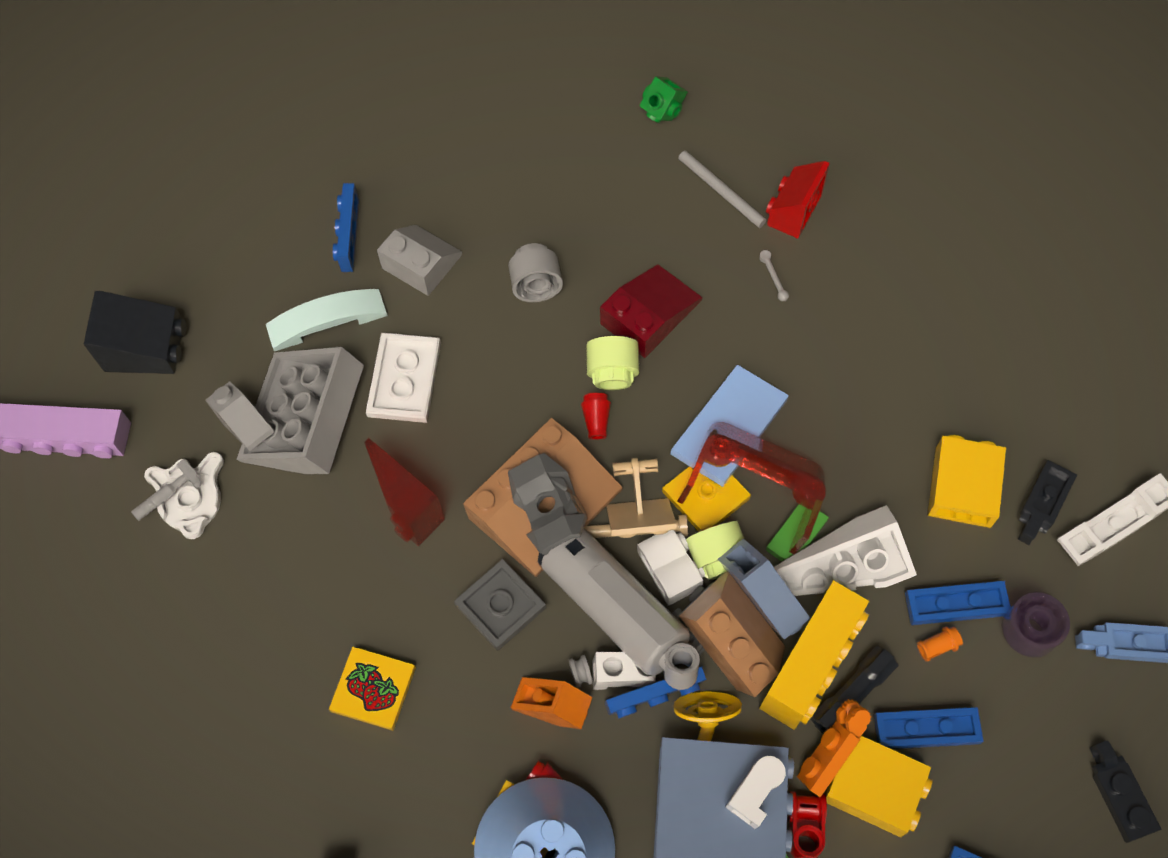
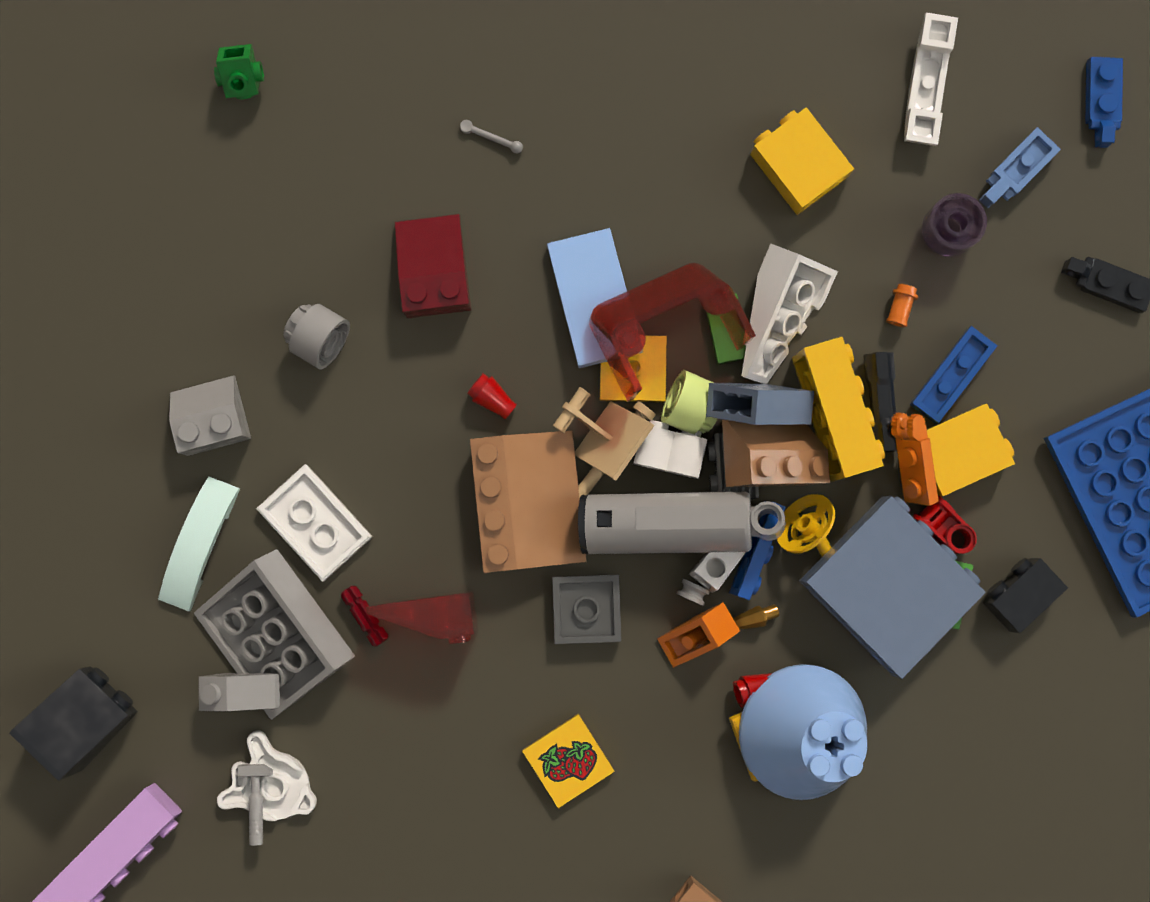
camera: 55 degrees left, 20 degrees up
(346, 227) = (121, 456): blue plate -> none
(362, 462) = (368, 623): none -> dark red axle
(540, 479) = (527, 493): dark grey piece -> none
(603, 736) = (756, 617): none -> pearl gold bar
(612, 362) = (460, 344): yellowish green piece -> none
(721, 188) = (369, 102): light grey bar -> none
(755, 787) = (903, 550): white leg -> none
(797, 198) = (442, 51): red slope -> none
(957, 602) = (884, 262): blue plate -> none
(1045, 500) = (866, 117): black hinge -> none

